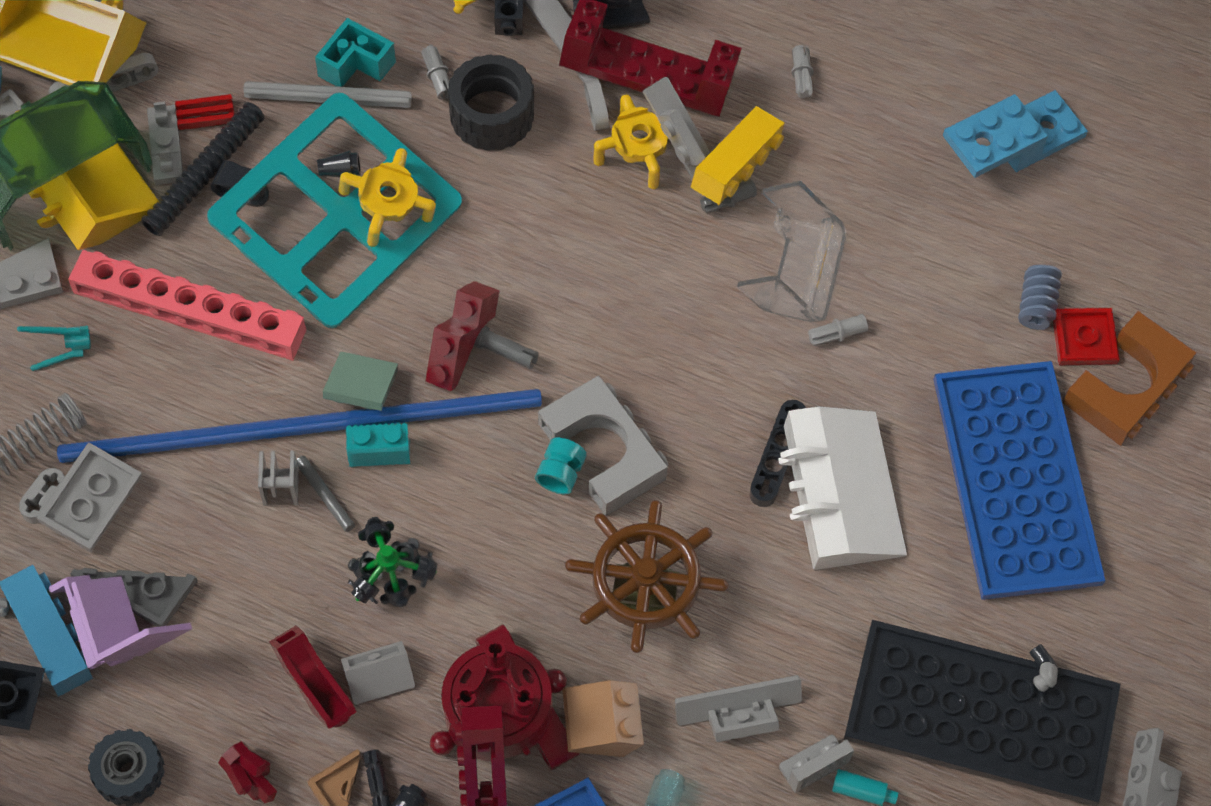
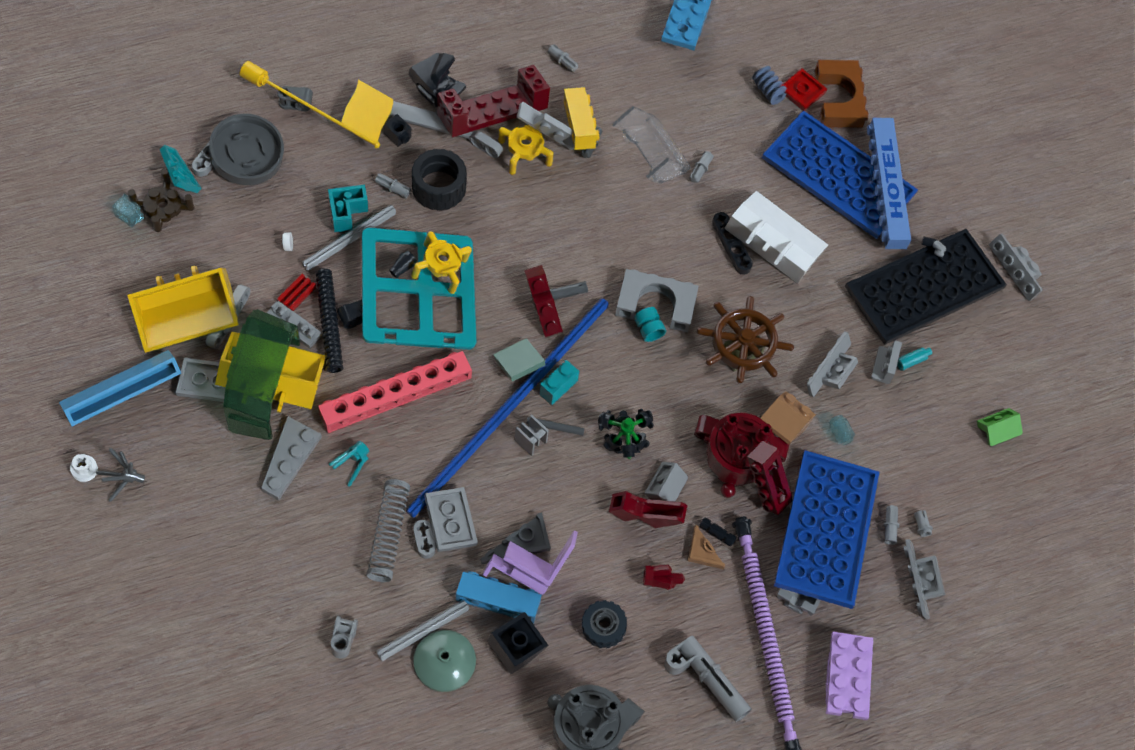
camera: 50 degrees left, 0 degrees up
(253, 47) = (287, 241): none -> white tile
(1064, 539) = (889, 183): none -> medium blue brick

